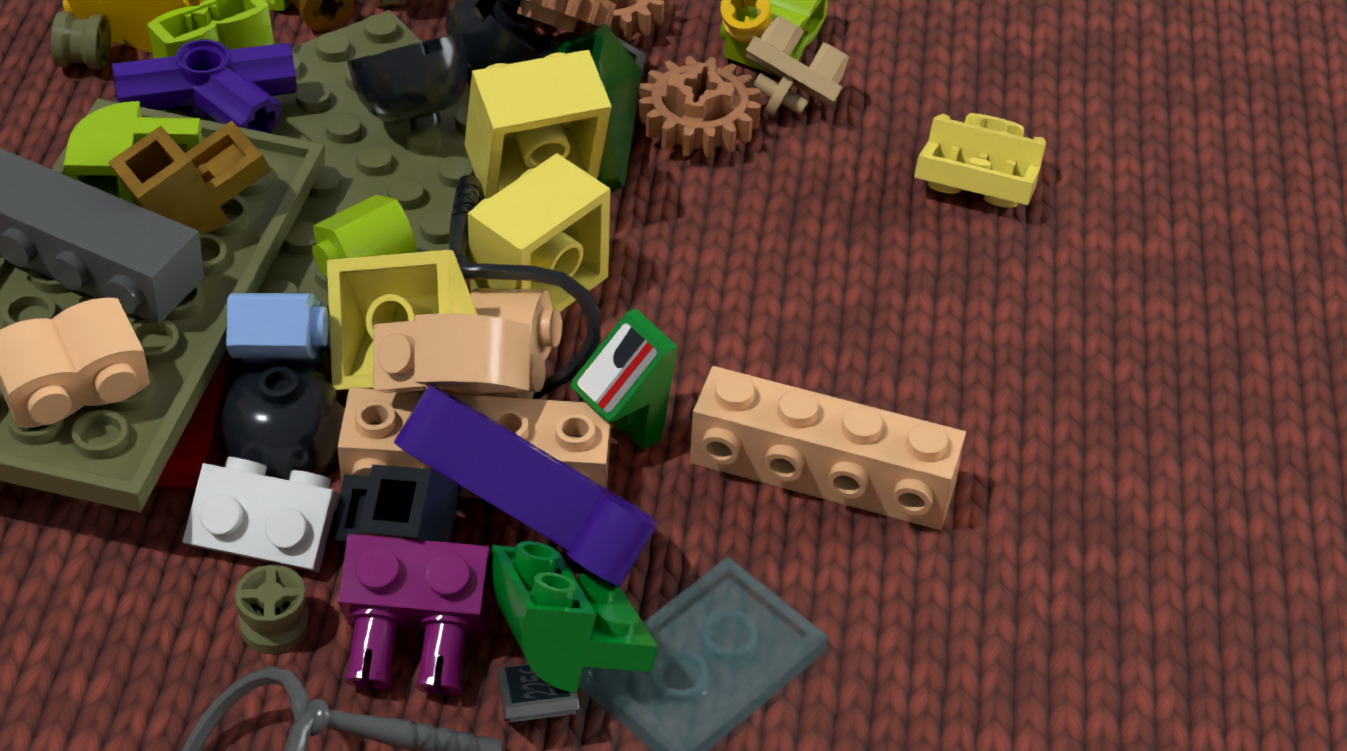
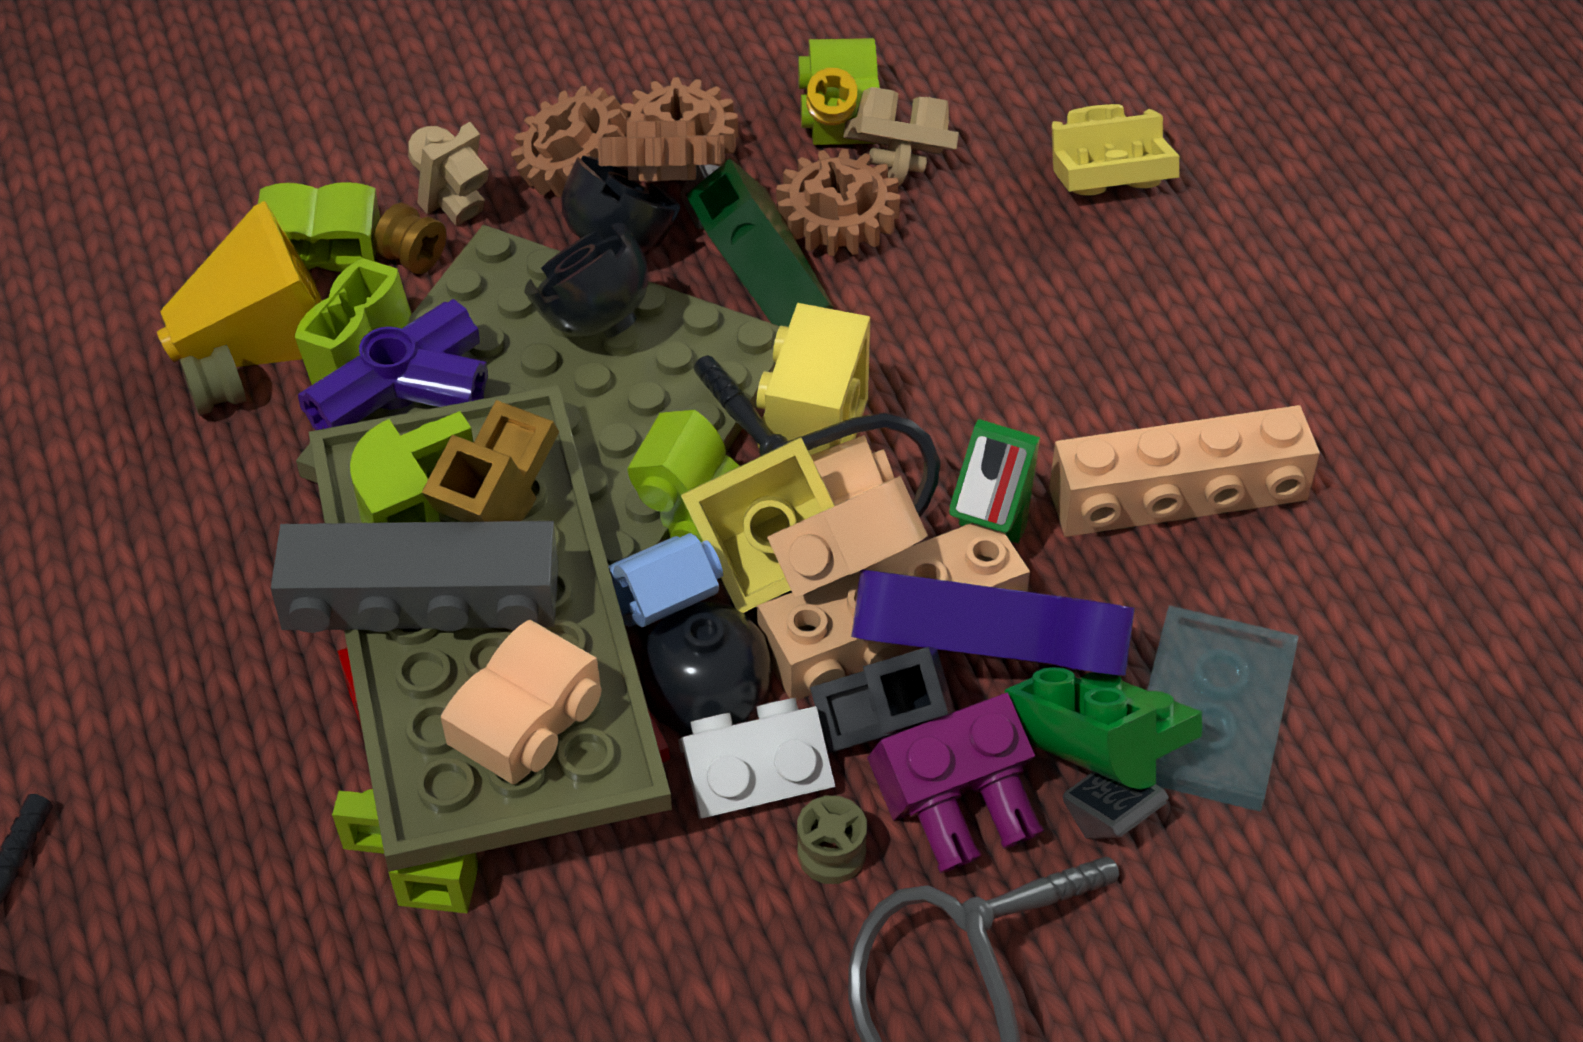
camera: 25 degrees left, 5 degrees up
(533, 111) = (748, 281): light yellow brick -> none

